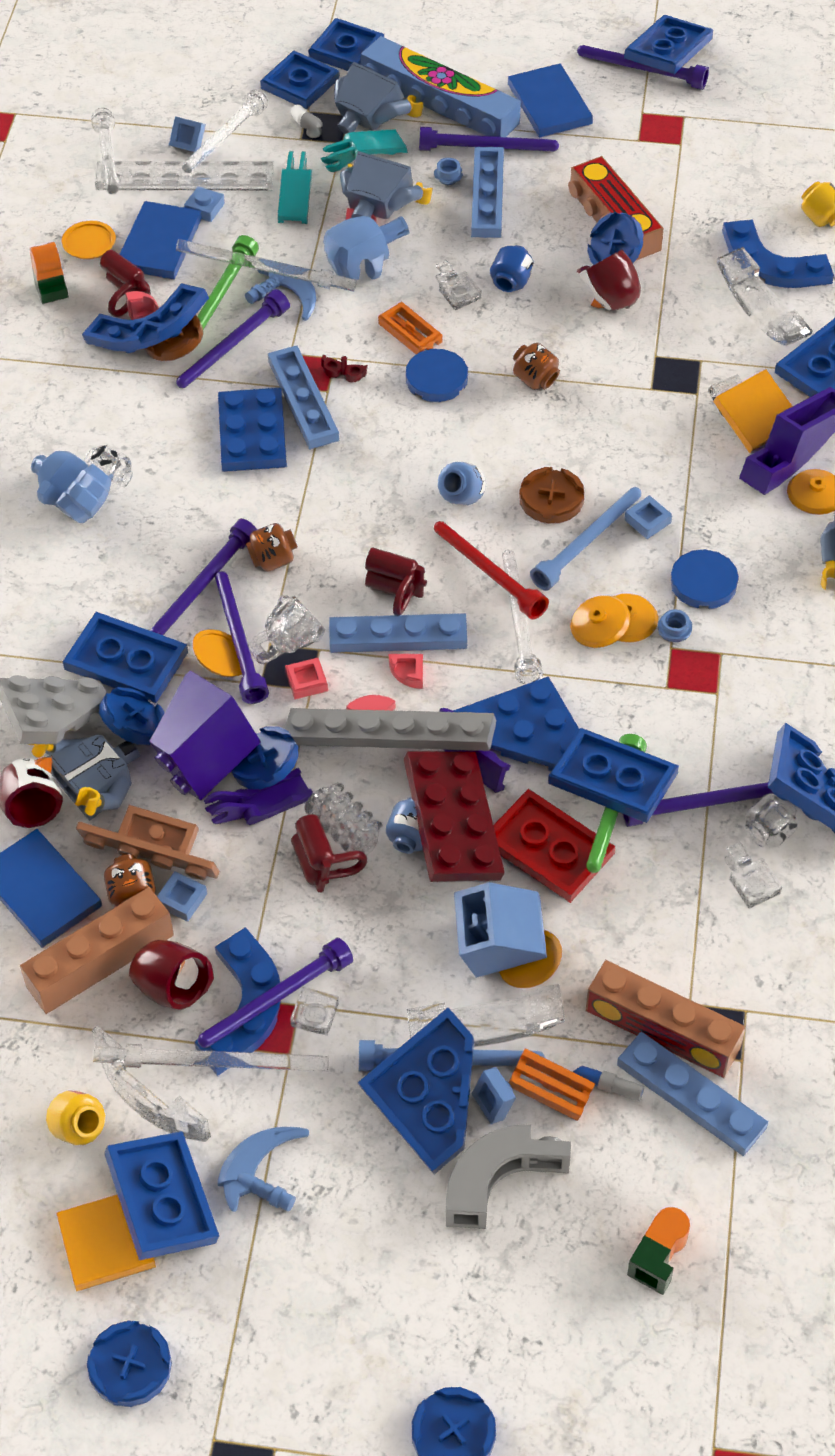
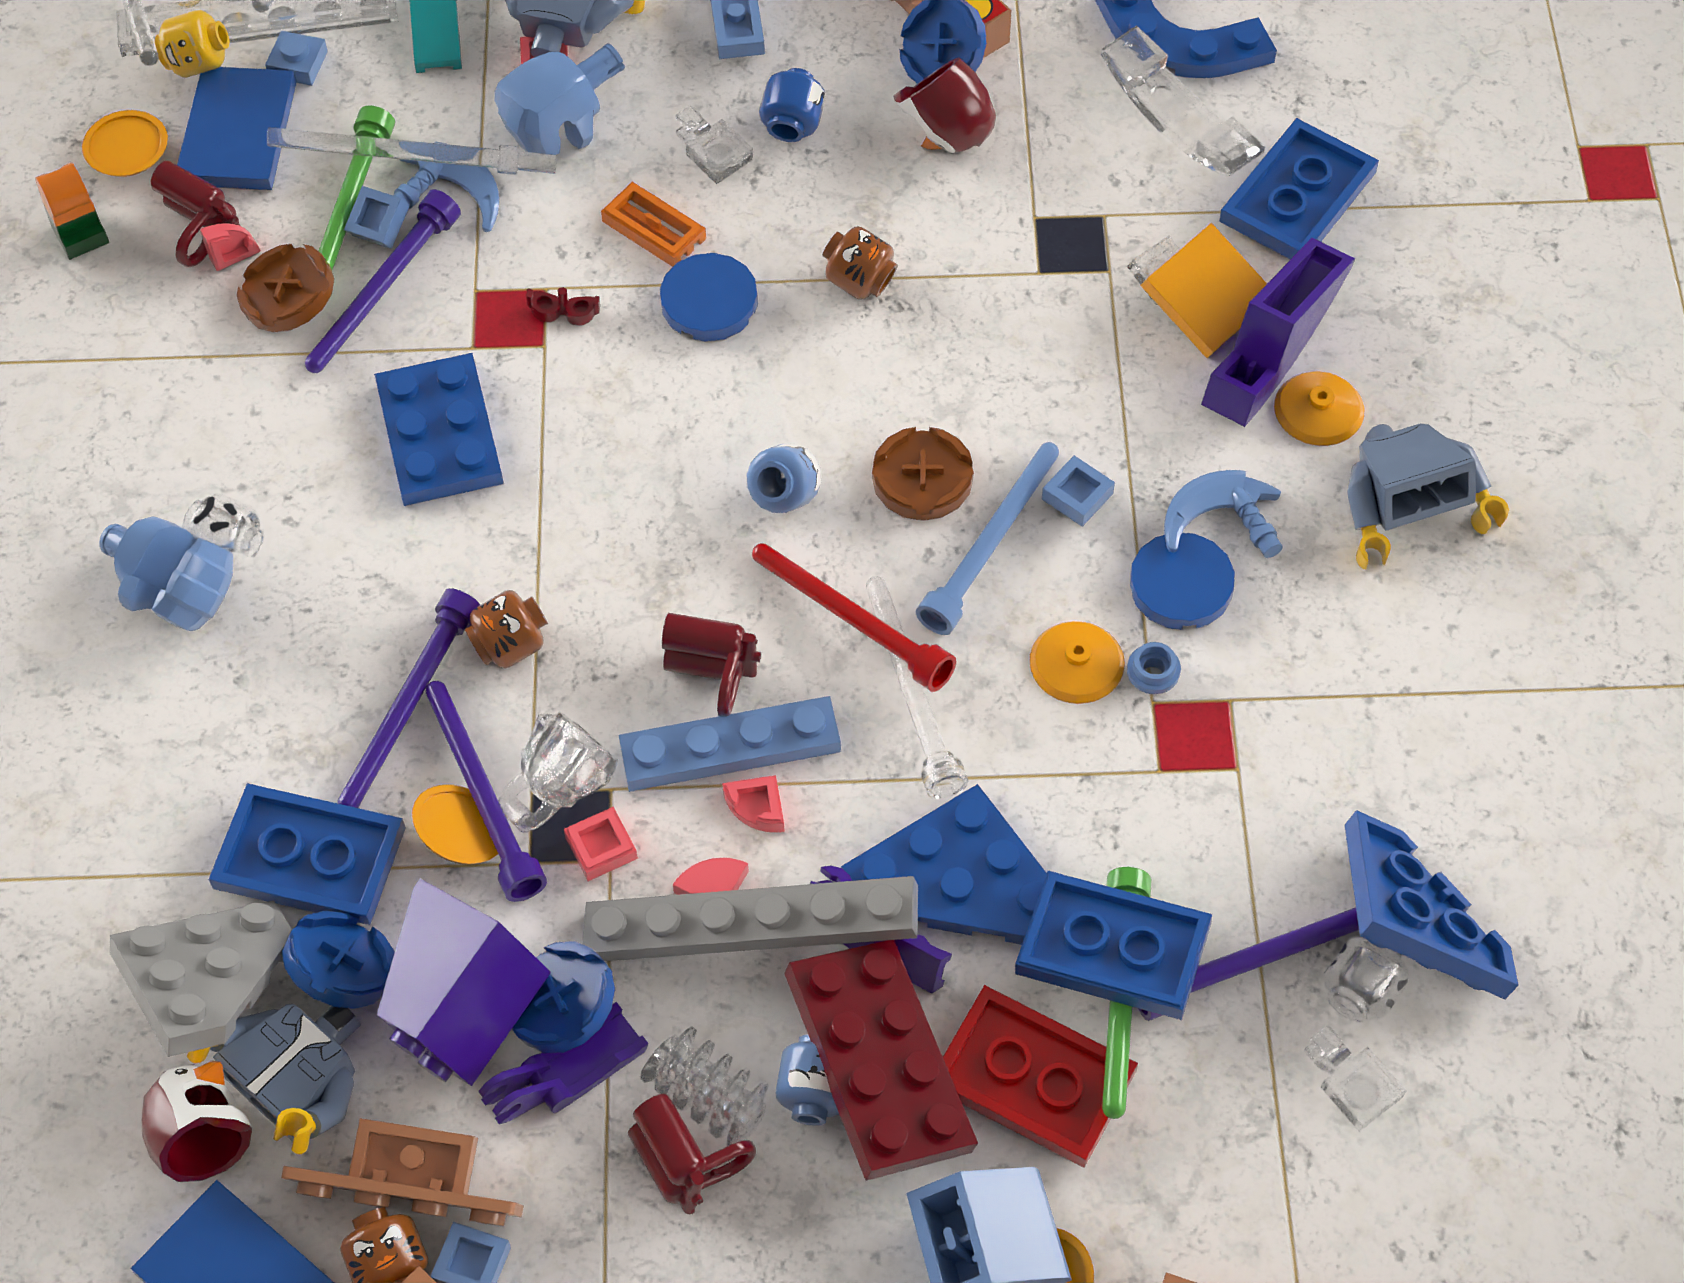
camera: 10 degrees left, 5 degrees up
(140, 185) = (192, 43): none -> yellow head
(144, 332) = (250, 287): blue plate -> none
(236, 301) = (377, 217): none -> medium blue plate
(303, 397) = (510, 364): medium blue plate -> none
(600, 621) = (1038, 677): light orange piece -> none
(743, 530) = (1224, 490): none -> medium blue piece

